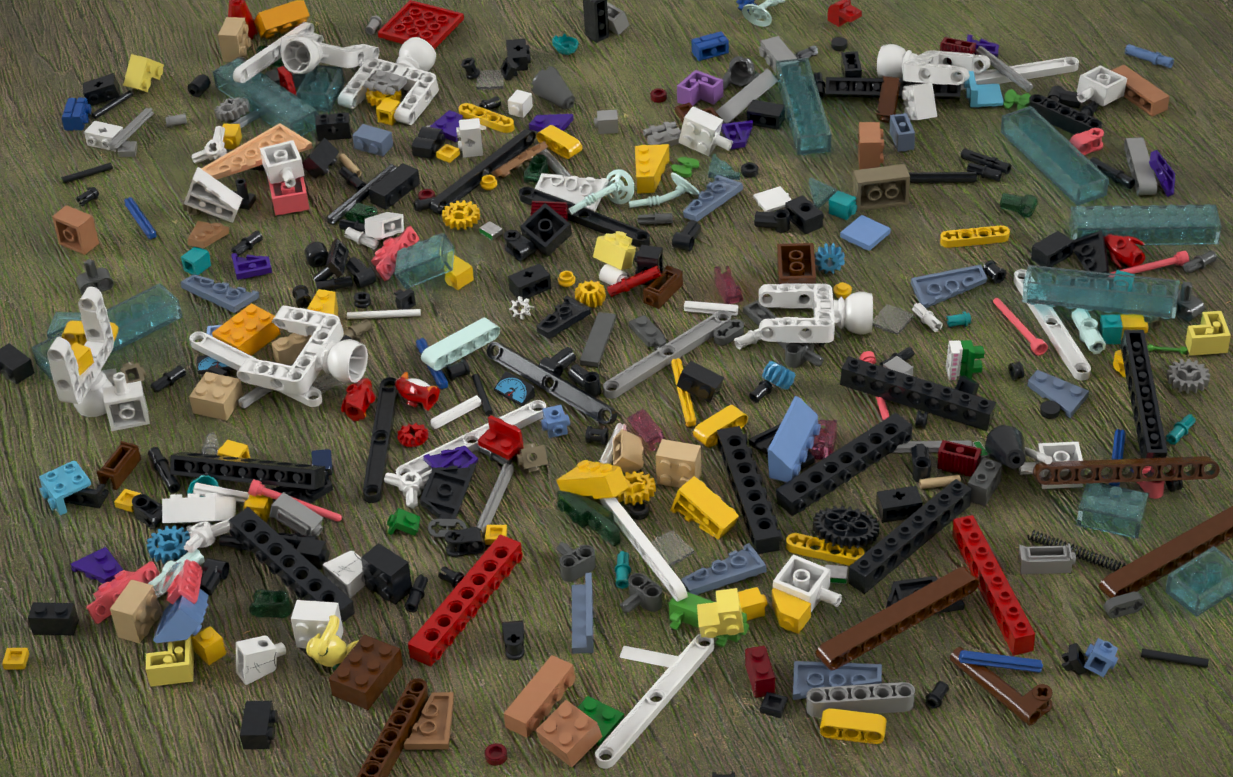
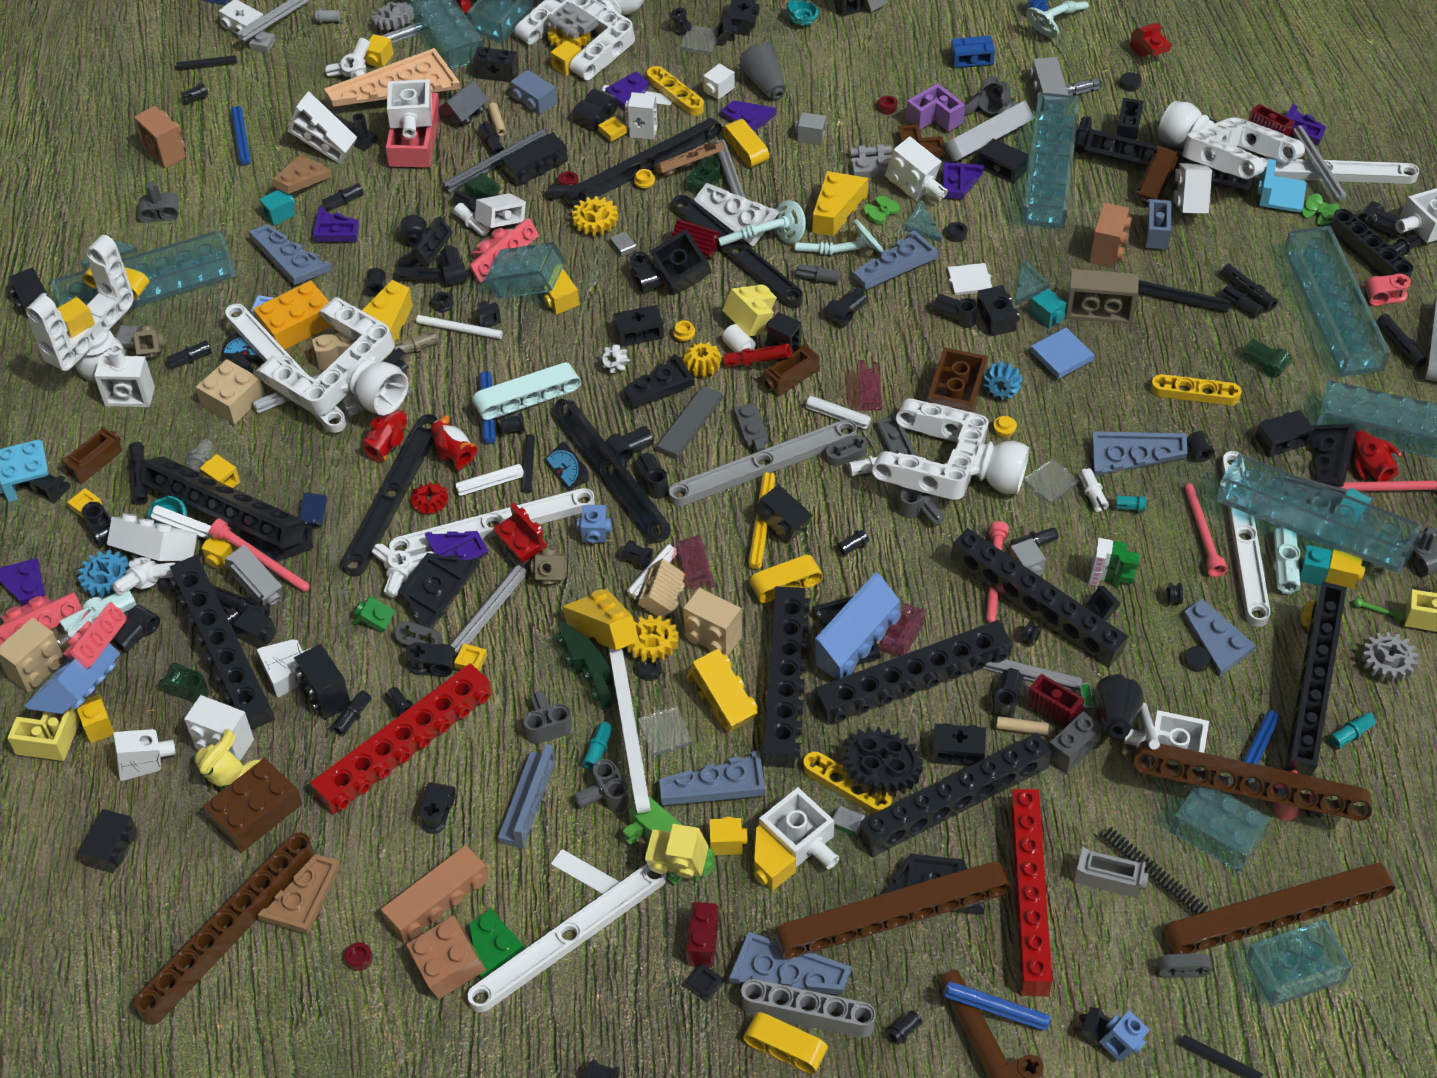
camera: 15 degrees right, 10 degrees up
(490, 104) = (685, 73): black pin -> none
(778, 375) = (879, 528): dark azure gear -> none

